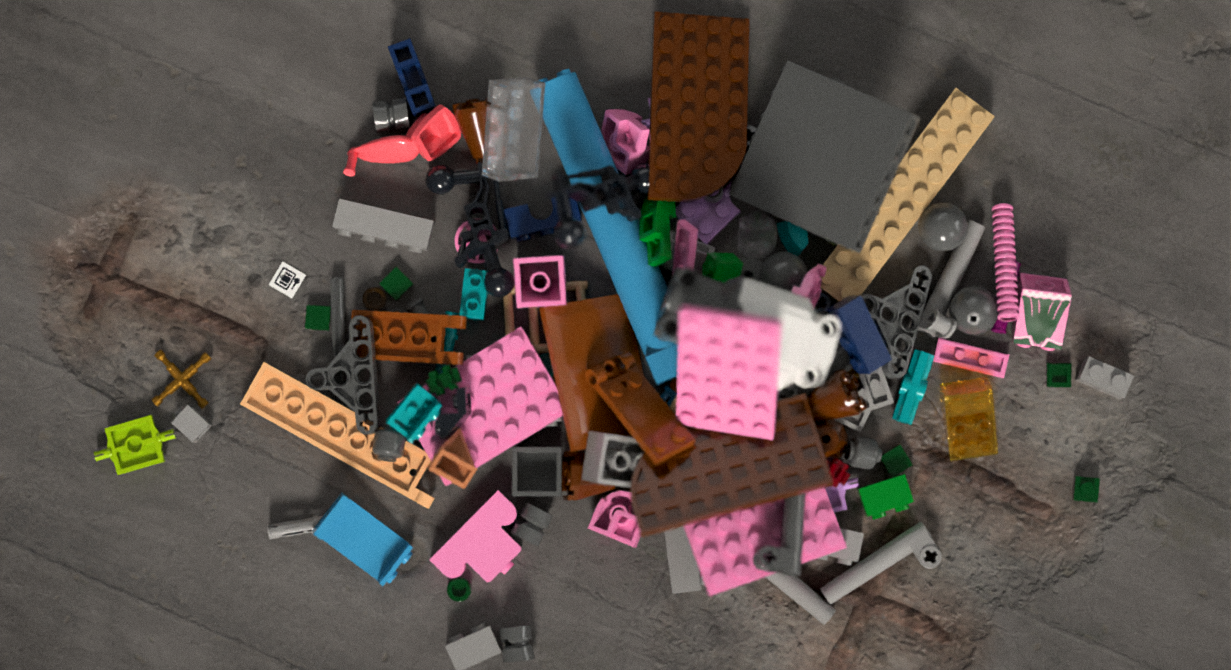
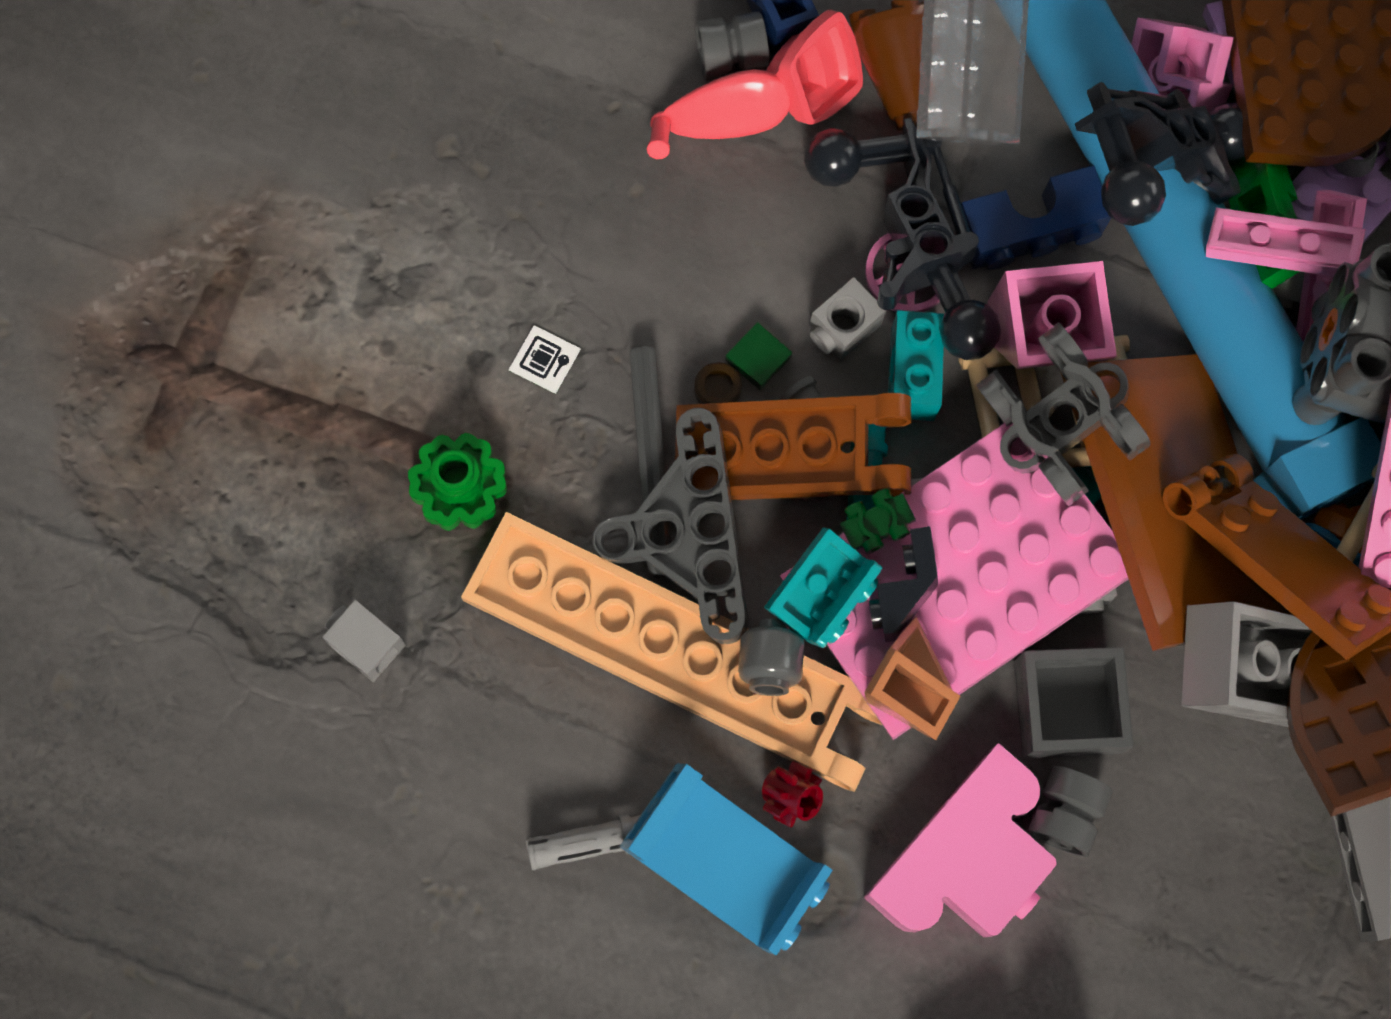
camera: 10 degrees left, 10 degrees down
(134, 445) = (248, 690): lime plate -> none
(181, 379) = (341, 556): pearl gold piece -> none
(240, 344) = (457, 481): none -> green plant
(318, 318) = (609, 426): dark green tile -> none
(383, 225) = (728, 246): light grey brick -> none
(397, 509) = (792, 794): none -> dark red gear
(442, 257) = (850, 301): none -> light grey brick
(459, 589) = (927, 956): dark green tile -> none
(507, 330) = (1035, 424): none -> dark grey piece
(572, 478) = (1156, 710): reddish brown cone -> none
(616, 518) = (1250, 788): bright pink brick -> none
(656, 249) = (1283, 242): none -> bright pink tile

